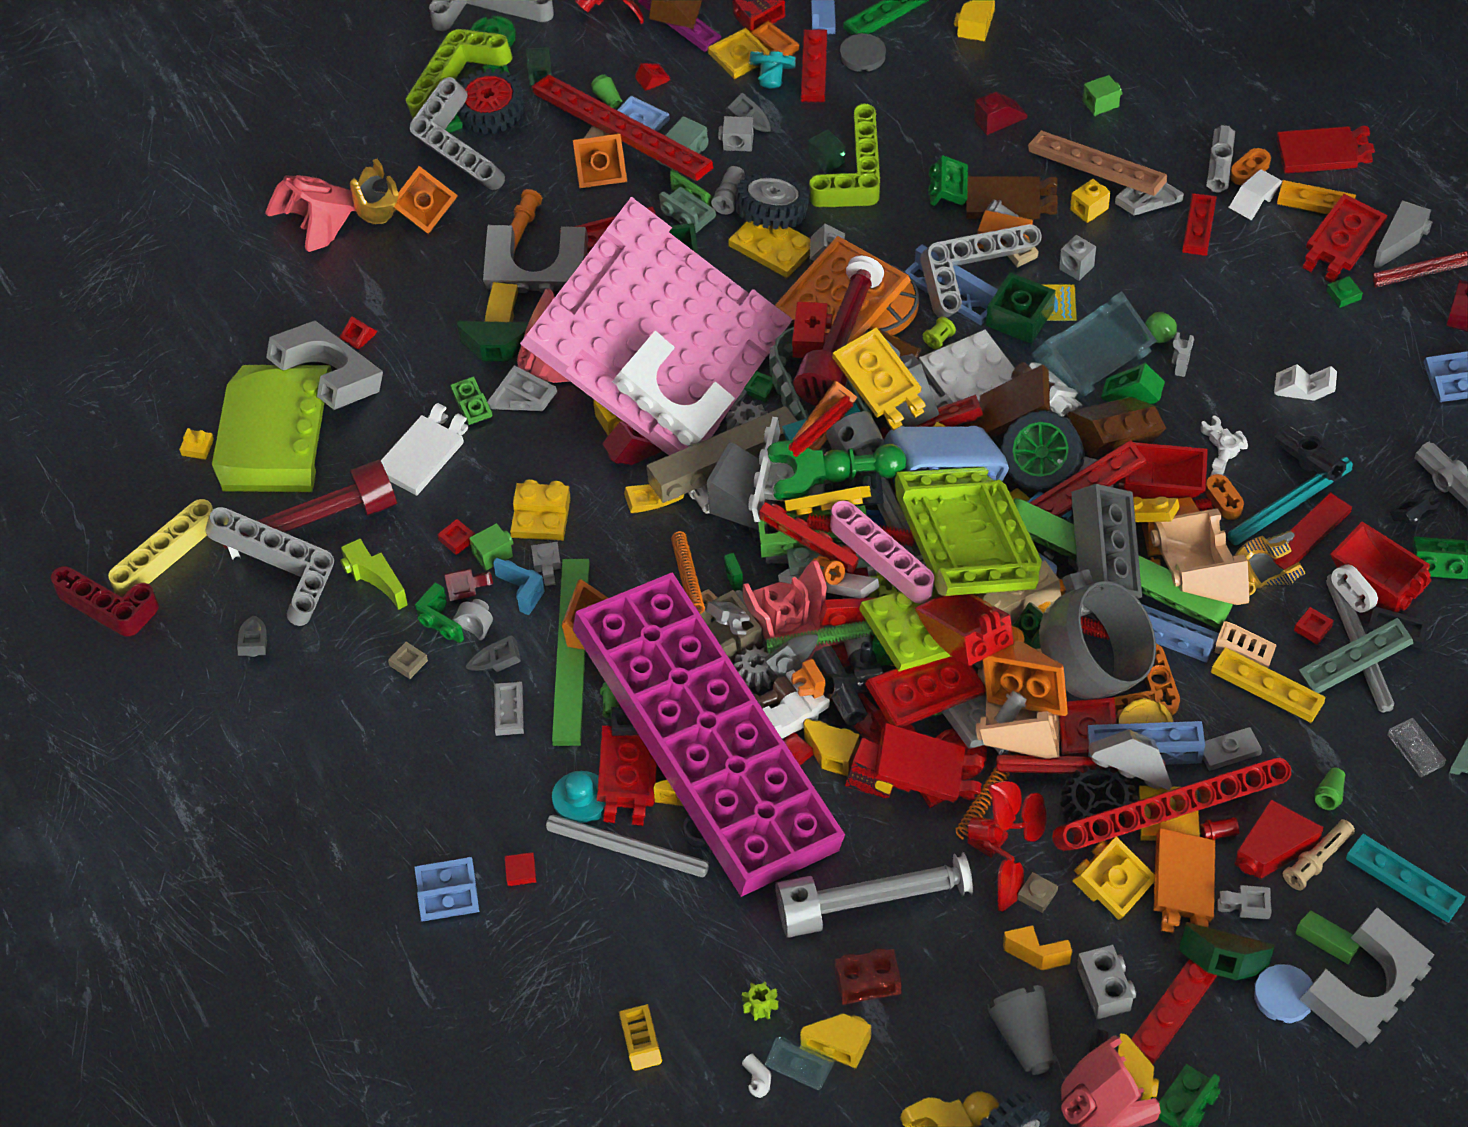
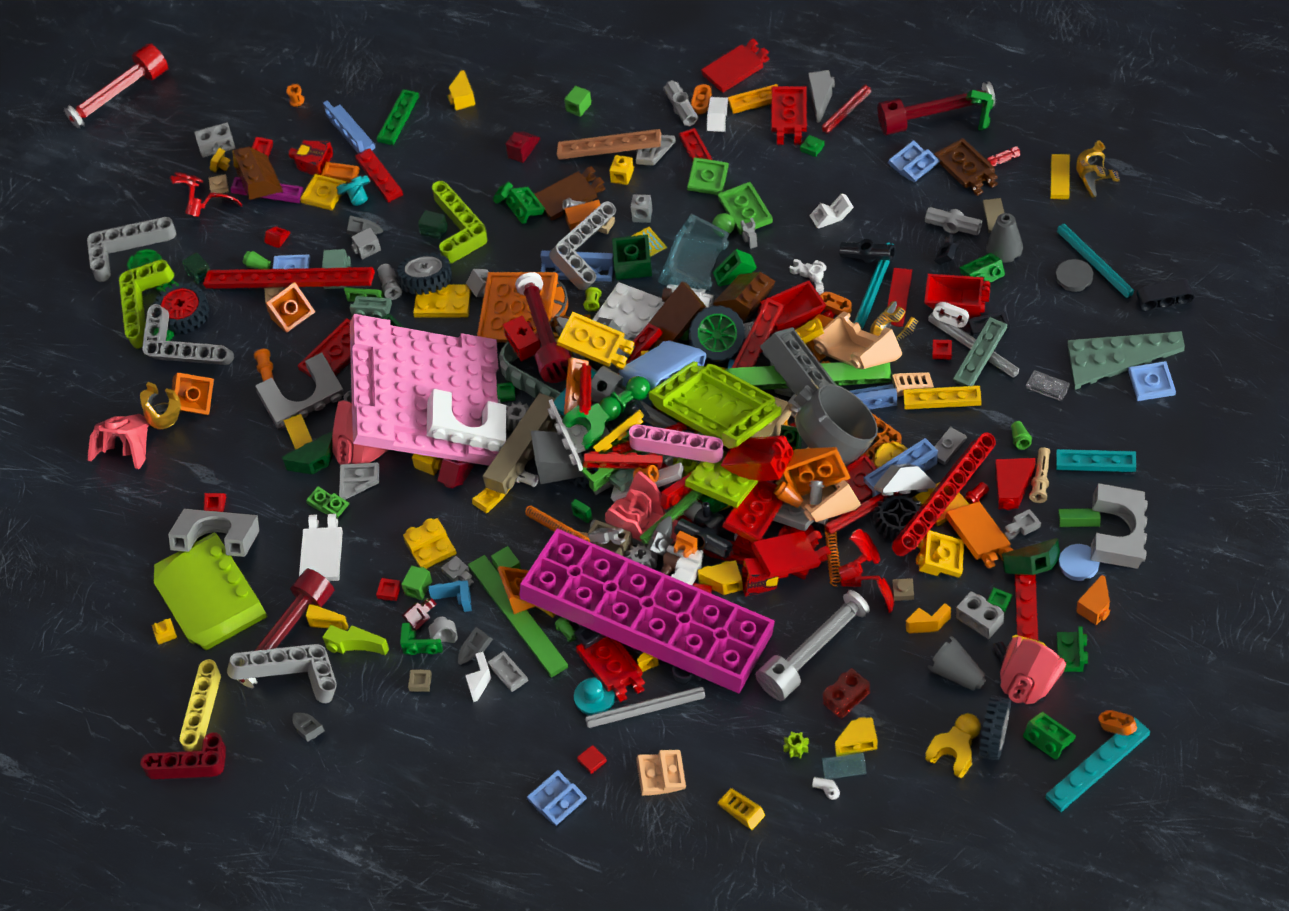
camera: 30 degrees left, 0 degrees up
(362, 527) = (323, 618): none -> yellow slope
(468, 700) = (479, 680): none -> white slope
(583, 934) = (661, 772): none -> light nougat slope
(604, 578) = (505, 558): none -> bright green brick
(862, 52) = (404, 151): dark grey tile -> none
(933, 155) = (502, 192): none -> green tile
(976, 691) = (788, 494): none -> orange cone
(1146, 978) = (1000, 599): none -> green tile
(1187, 261) = (707, 176): none -> bright green tile
(1206, 318) = (744, 204): none -> bright green plate
(1264, 1056) = (1095, 602): none -> orange slope

